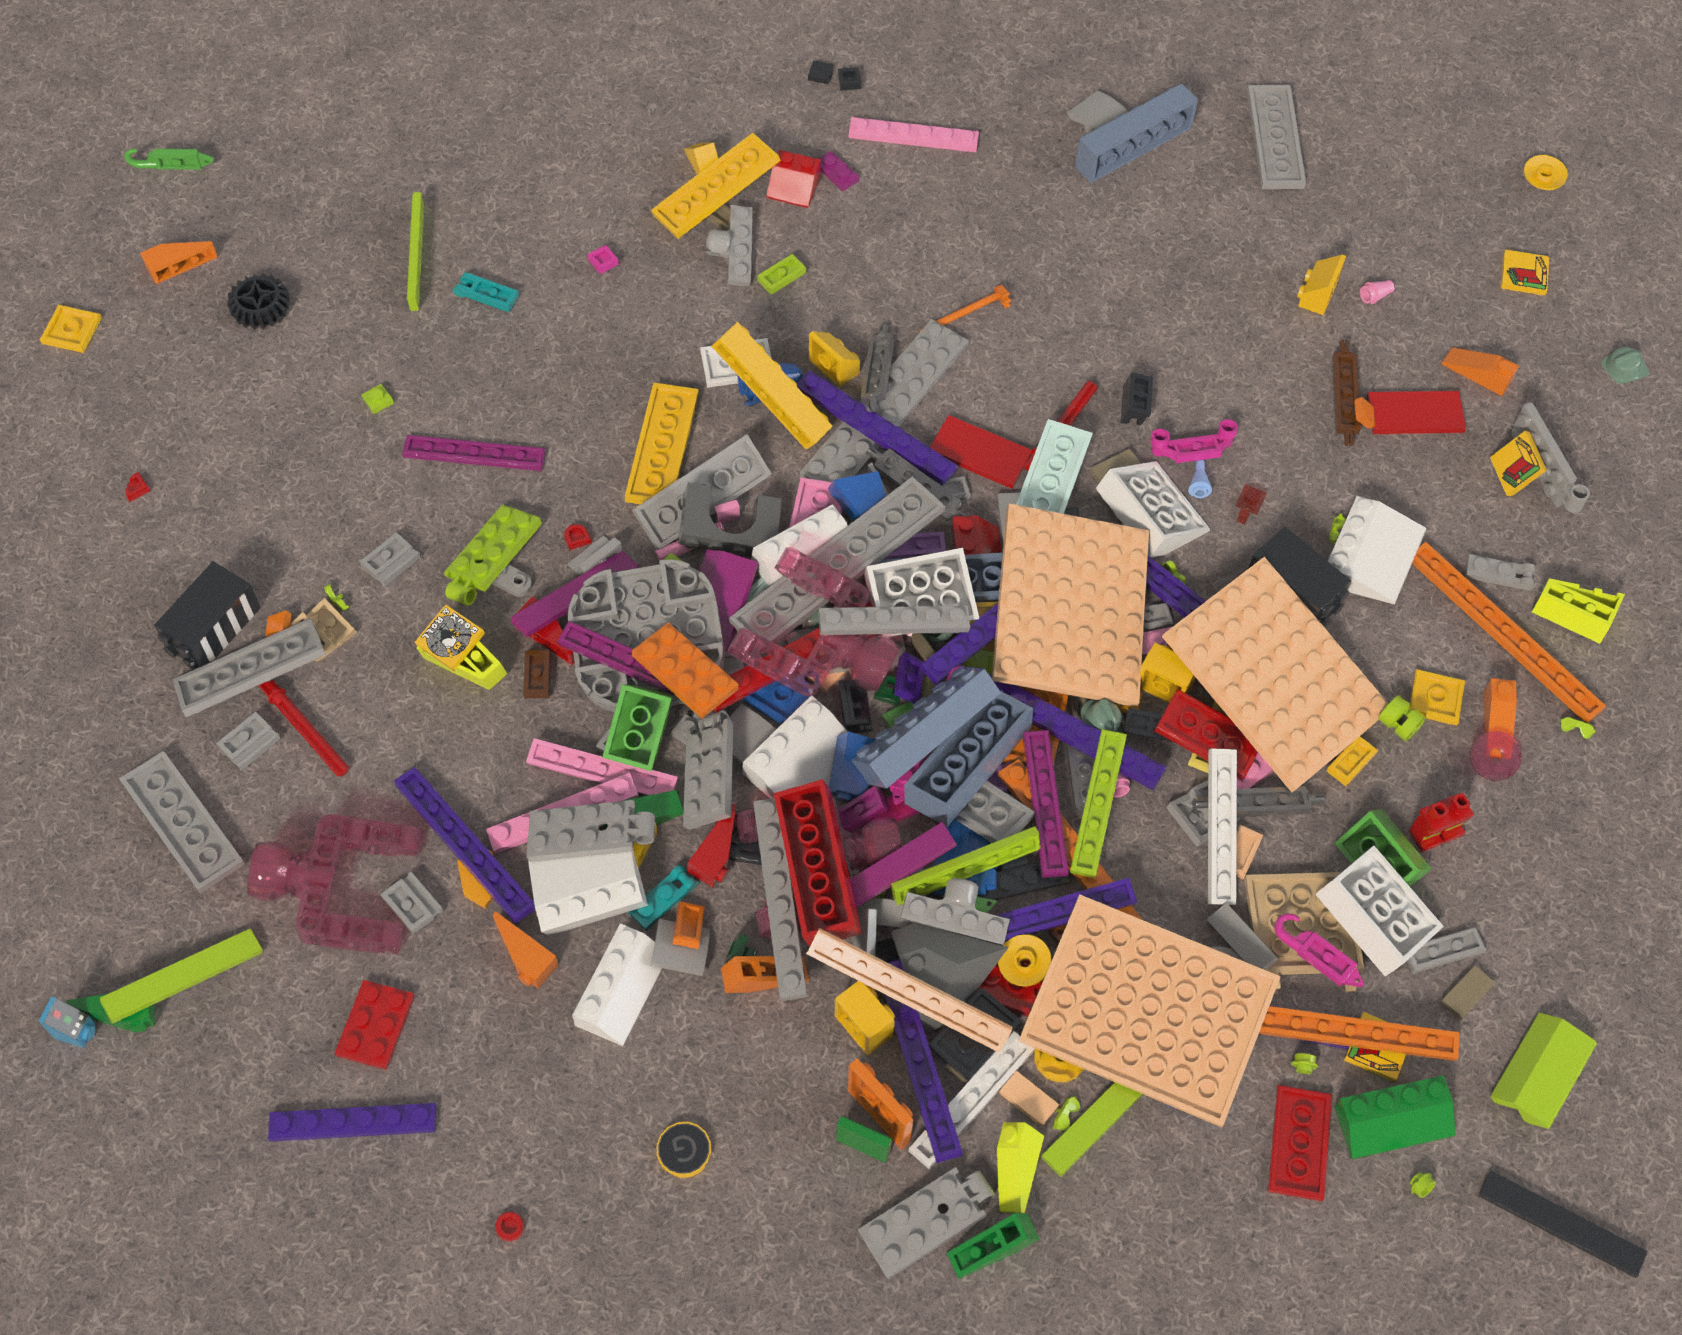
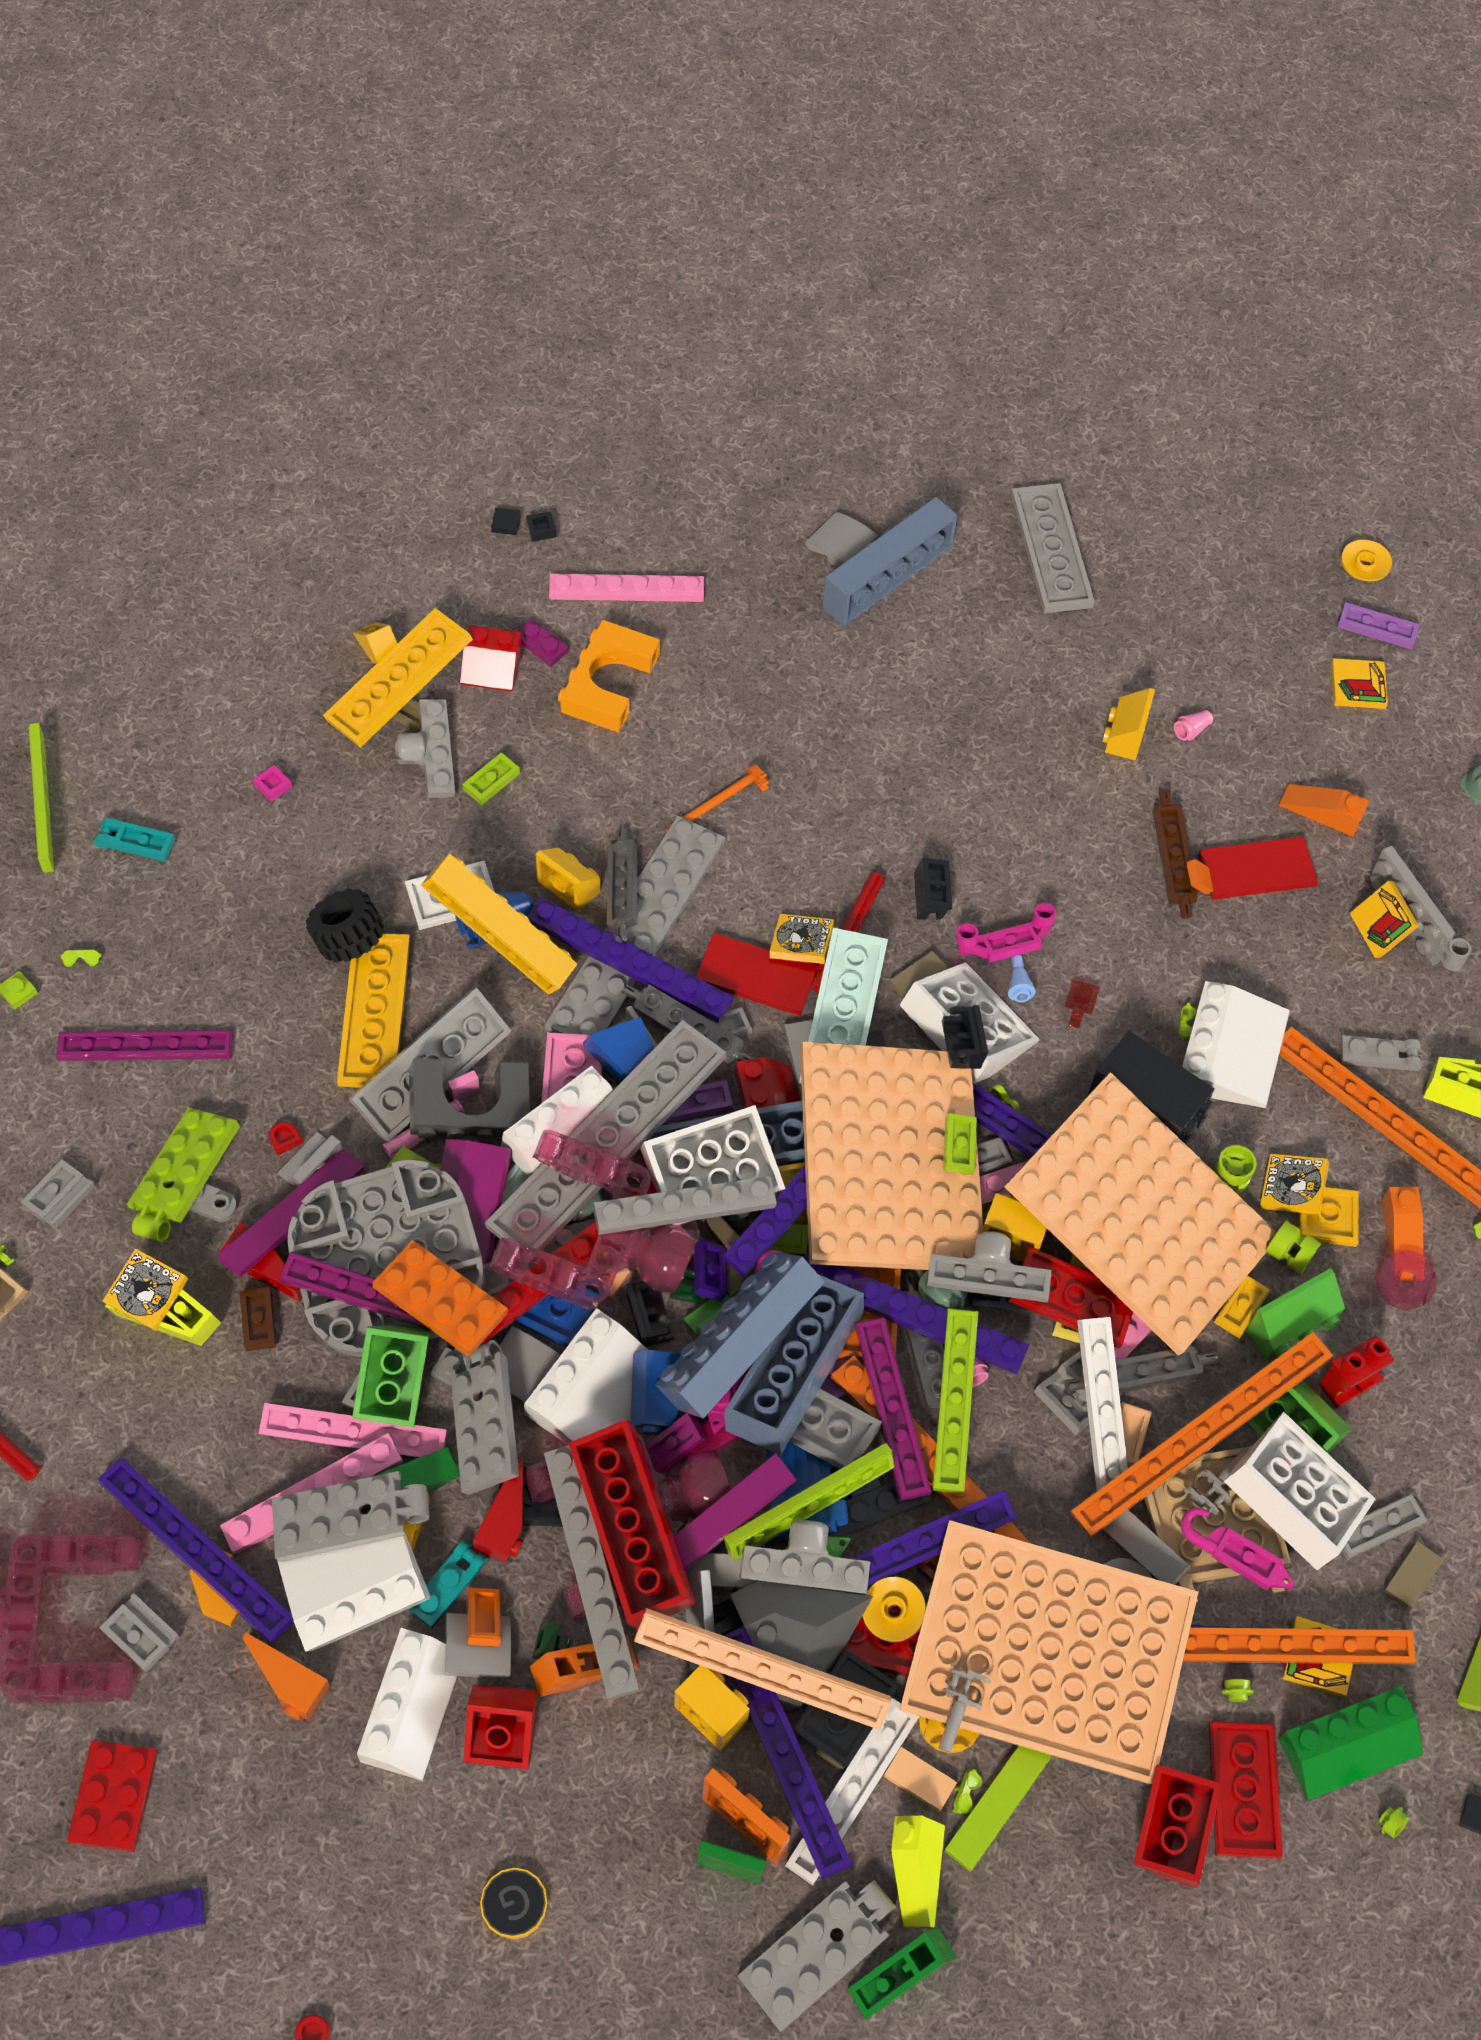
camera: 10 degrees left, 0 degrees up
(439, 379) = (91, 957): none -> lime piece
(646, 375) = (345, 925): none -> black tyre
(690, 1011) = (500, 1726): none -> red slope
(891, 178) = (607, 646): none -> light orange arch
(1020, 427) = (802, 938): none -> tile
(1068, 1042) = (959, 1706): none -> light grey piece
(1129, 600) = (959, 1144): none -> lime plate
(1140, 703) = (990, 1271): none -> light grey plate
(1145, 516) = (965, 1037): none -> black hinge
(1237, 1161) = (1177, 1826): none -> red slope
(1301, 854) = (1201, 1435): none -> orange plate
(1309, 897) = (1217, 1483): none -> light grey piece
(1362, 648) = (1236, 1167): none -> lime wheel
(1397, 771) = (1297, 1314): none -> bright green slope
(1411, 668) = (1294, 1184): none -> tile
(1548, 227) = (1378, 625): none -> medium lavender plate

